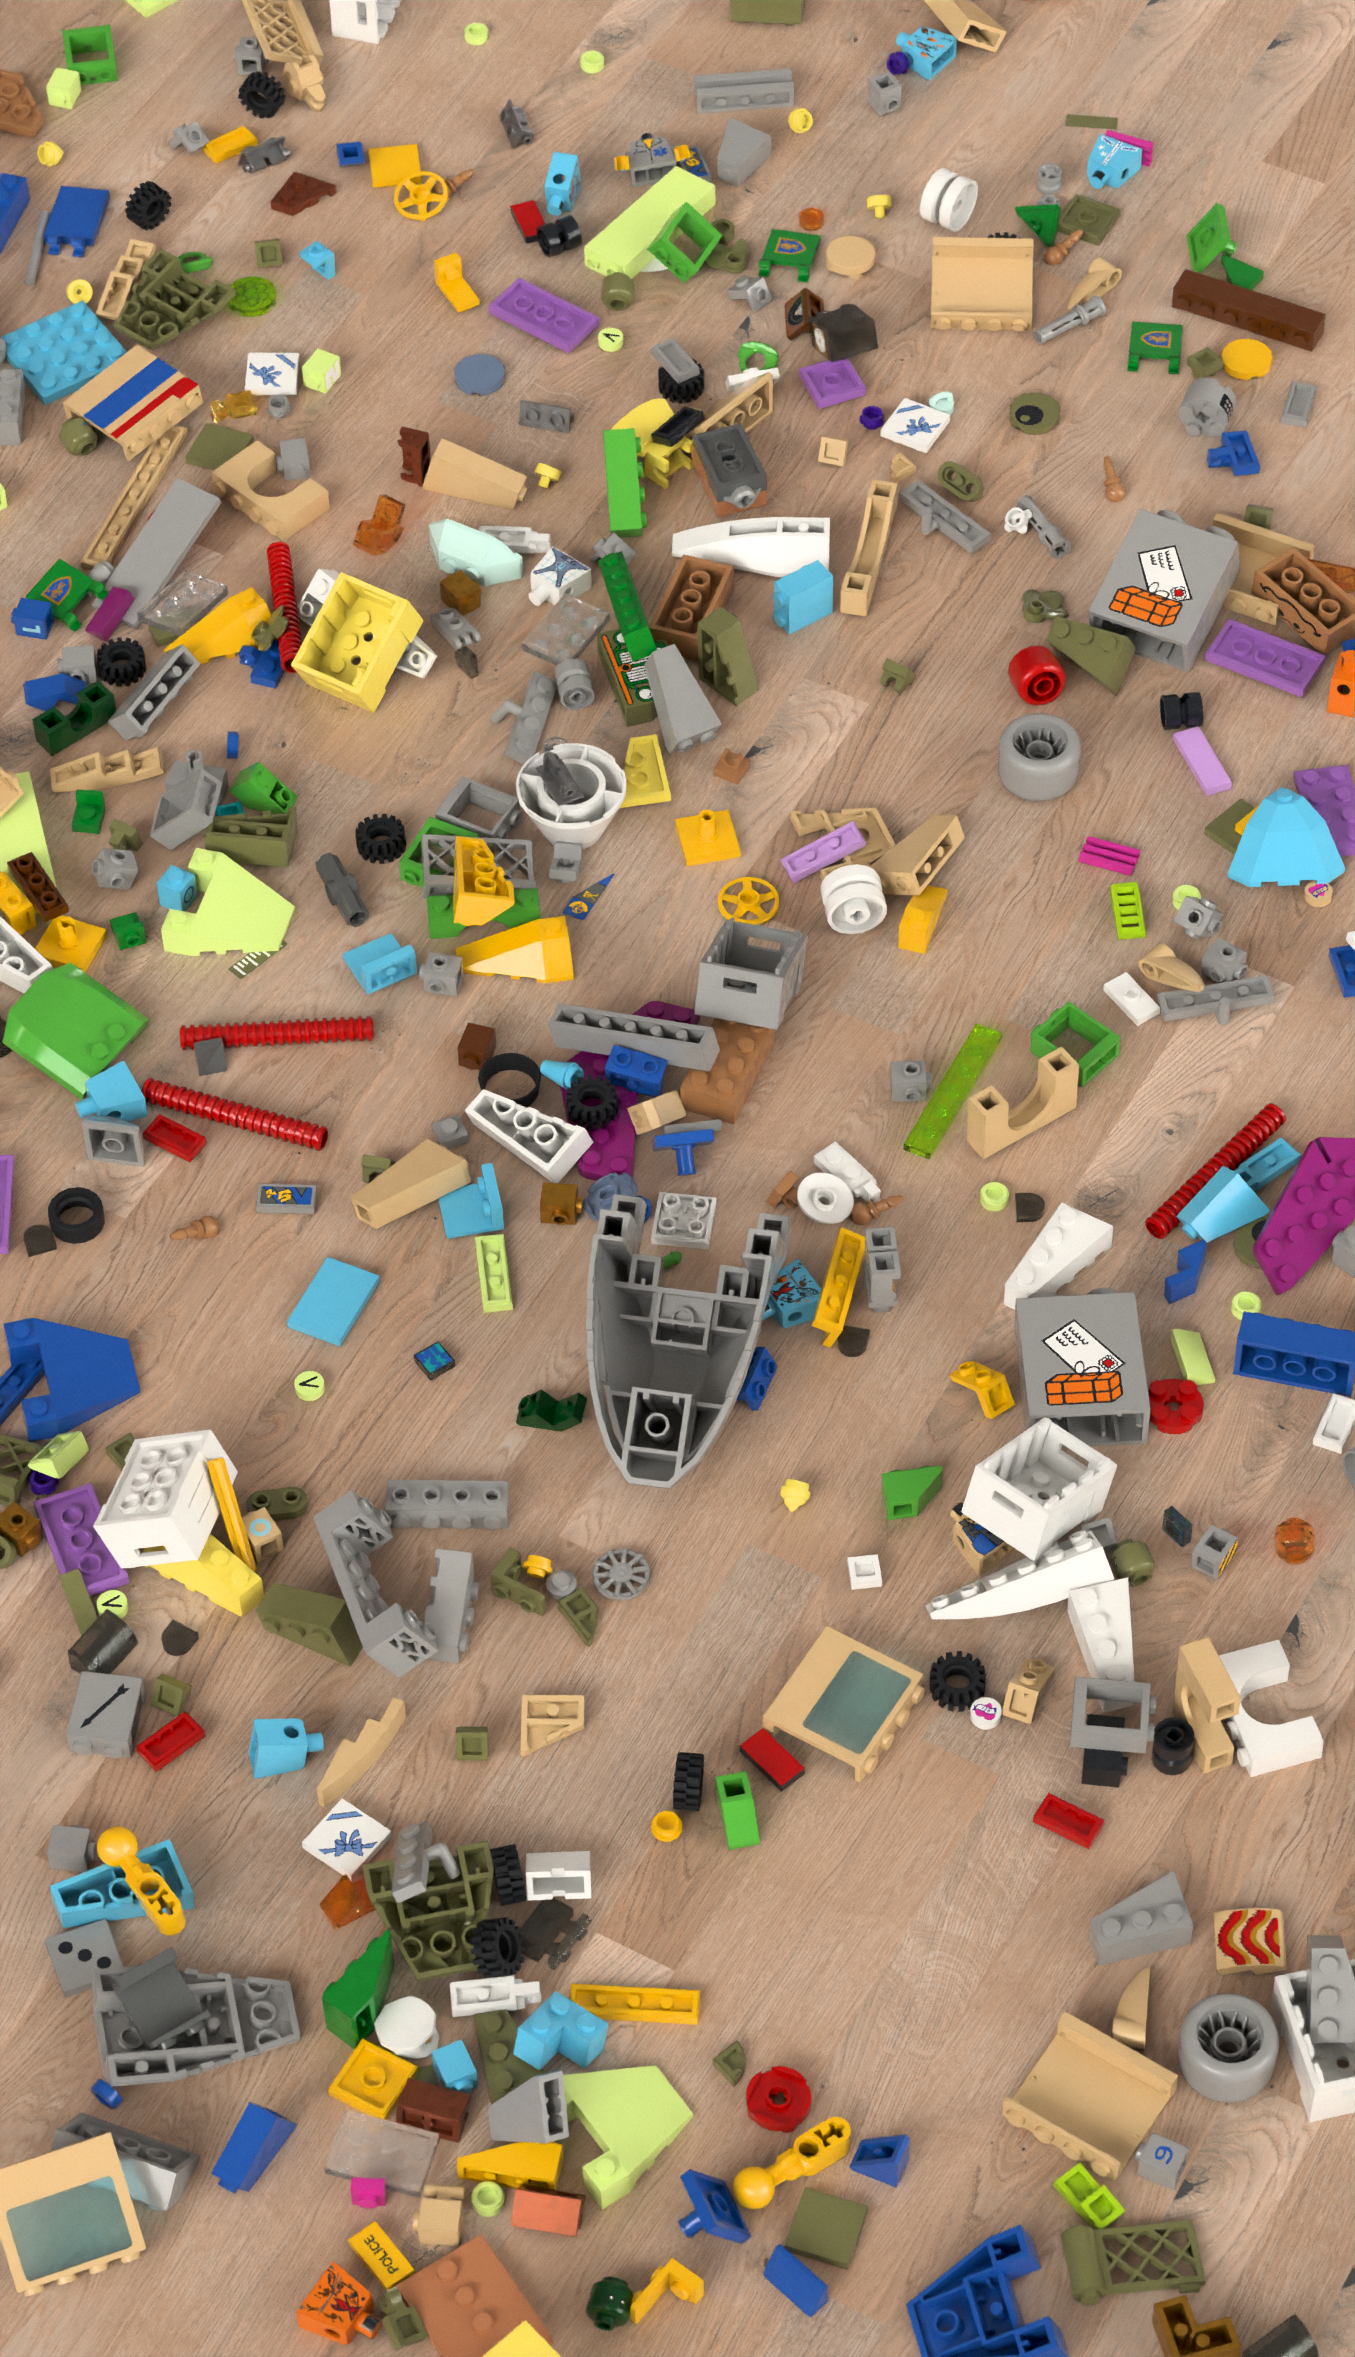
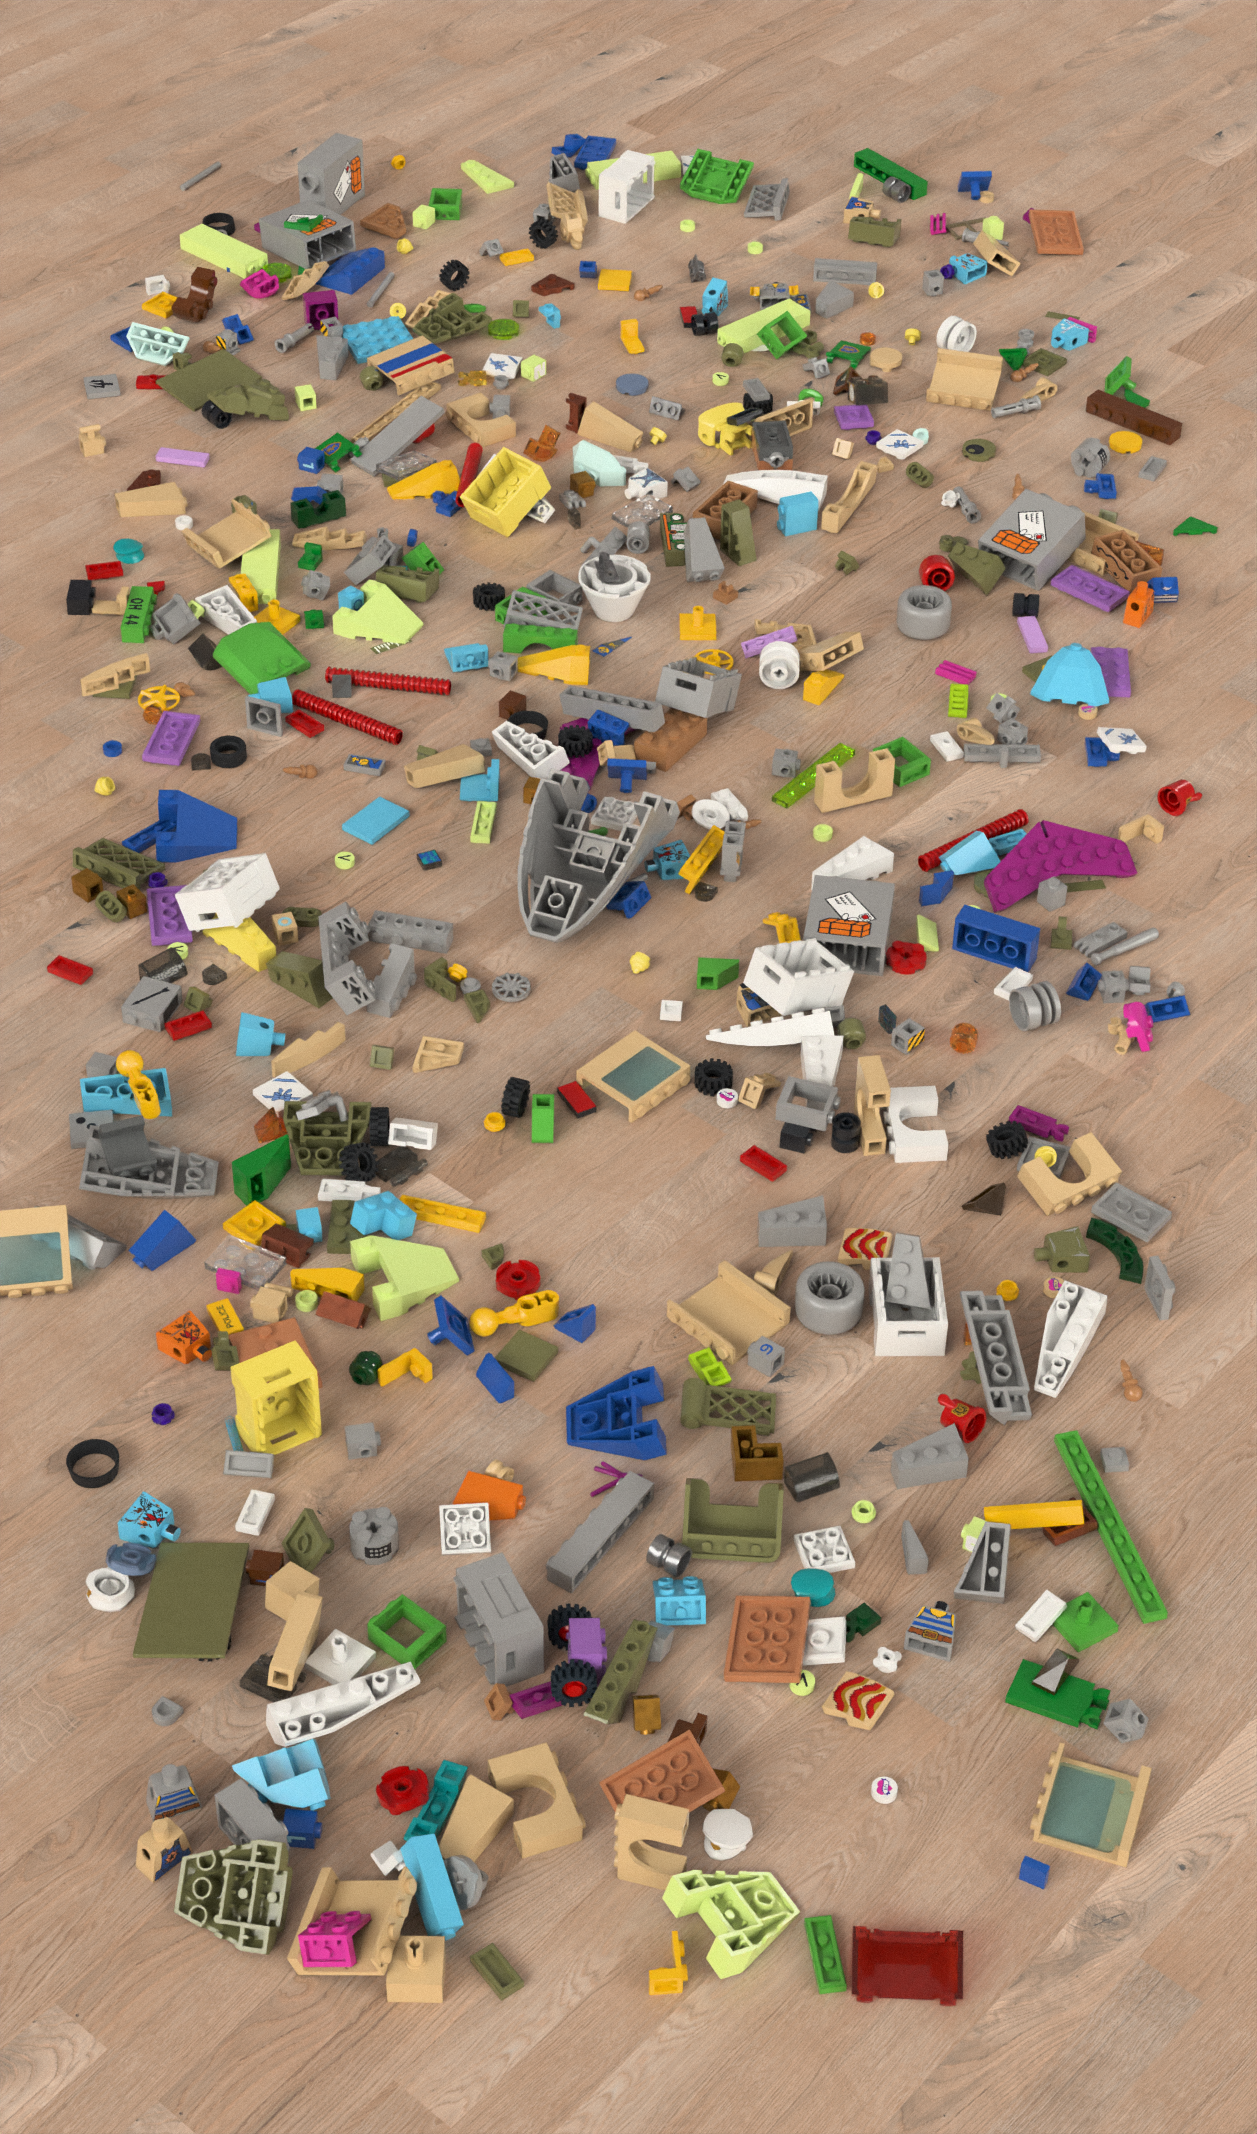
camera: 10 degrees right, 10 degrees down
(38, 887) = (263, 583): reddish brown tile -> none
(60, 1454) = (173, 868): yellowish green slope -> none
(76, 219) = (409, 279): blue tile -> none
(78, 1599) = (156, 939): olive sticker -> none
(106, 2094) = (77, 1200): blue tile -> none
(110, 613) = (360, 464): magenta slope -> none
(121, 651) = (358, 488): black tyre -> none
(124, 836) = (329, 570): olive tile -> none
(154, 693) = (371, 504): light grey brick -> none
(216, 446) = (453, 393): olive tile -> none
(230, 1511) = (267, 905): yellow axle -> none
(266, 632) = (452, 483): olive plate -> none
(272, 149) = (528, 263): flat silver hinge -> none
(342, 889) = (455, 617): dark grey piece -> none
(408, 2028) = (285, 1198): white hat -> none
(420, 196) = (625, 294): yellow wheel -> none
(478, 884) = (538, 618): yellow wedge -> none
(531, 2111) = (348, 1246): light grey slope -> none
(544, 315) = (682, 361): medium lavender plate -> none
(547, 1413) = (492, 897): dark green slope -> none
(561, 1072) = (559, 723): medium azure cone -> none
(566, 862) = (603, 623): light grey bracket -> none
(623, 482) = (701, 441): bright green brick -> none
(627, 606) = (682, 498): green brick -> none
(645, 773) = (667, 589): light yellow wing -> none
(941, 515) = (903, 490): light grey plate -> none
(1029, 1207) = (843, 841): clear smoke tile -> none
(1155, 342) = (1069, 426): green flag -> none
(1204, 363) = (1099, 434): olive tile -> none

